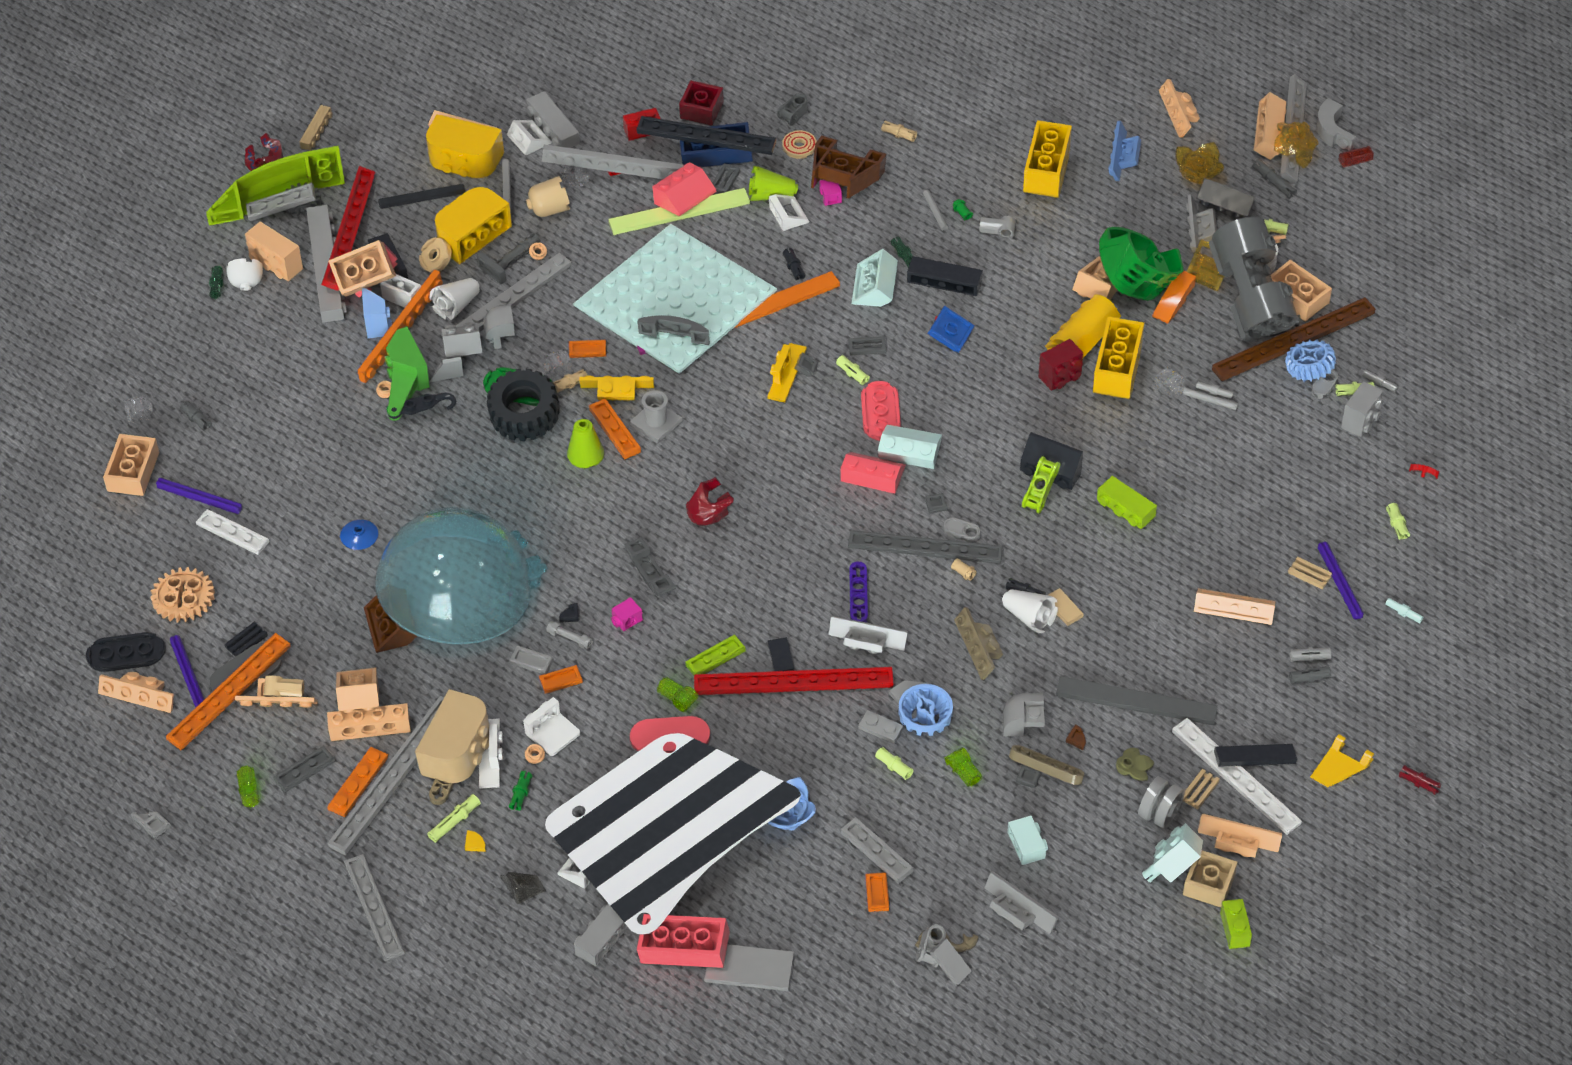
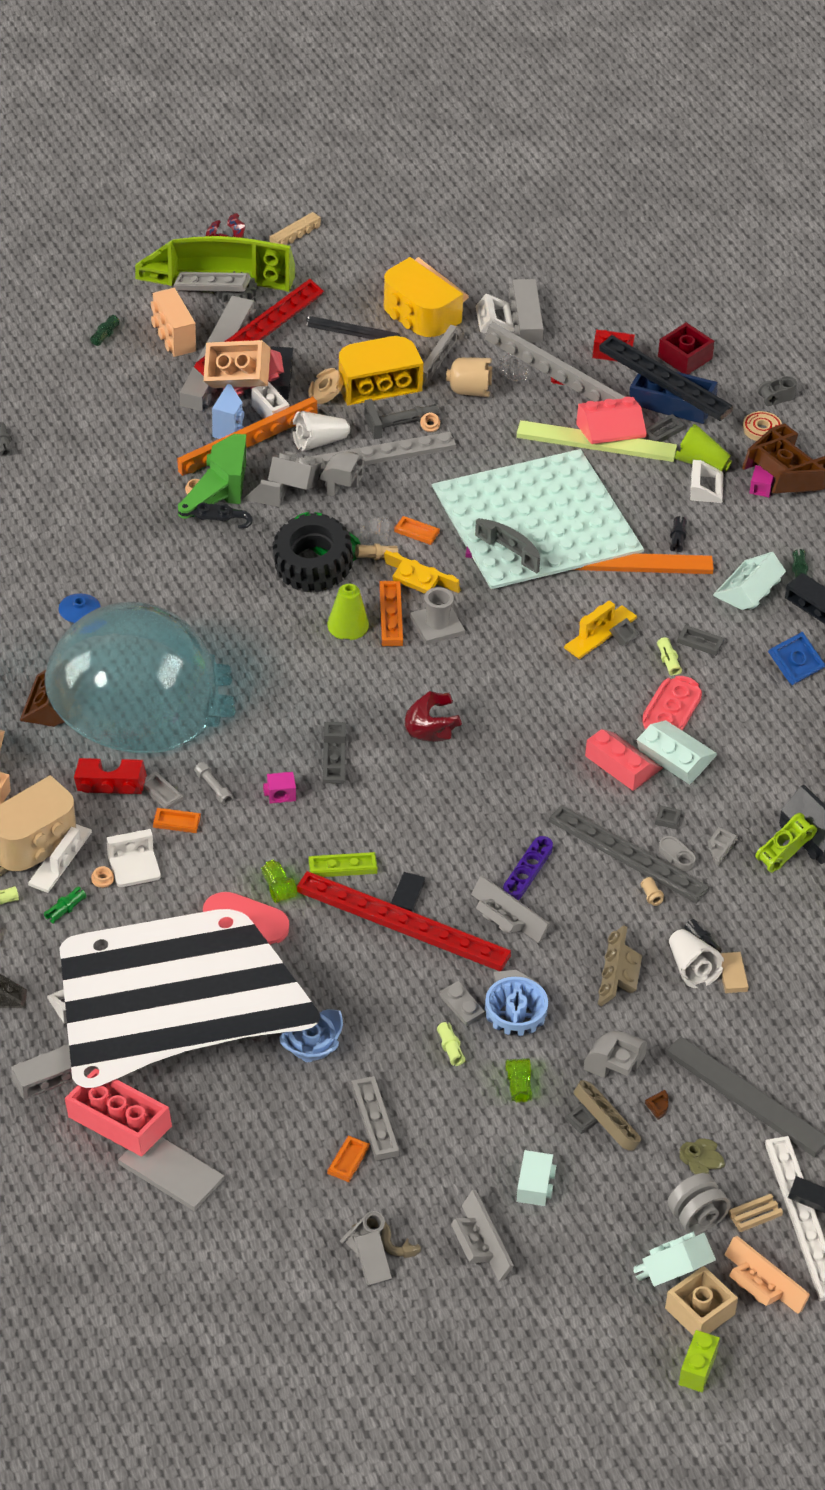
camera: 25 degrees right, 5 degrees down
(244, 274) = (134, 332): white cylinder -> none
(474, 675) = (126, 779): none -> red arch
(569, 614) = (228, 765): black tile -> none
(989, 507) = (720, 844): none -> light grey tile

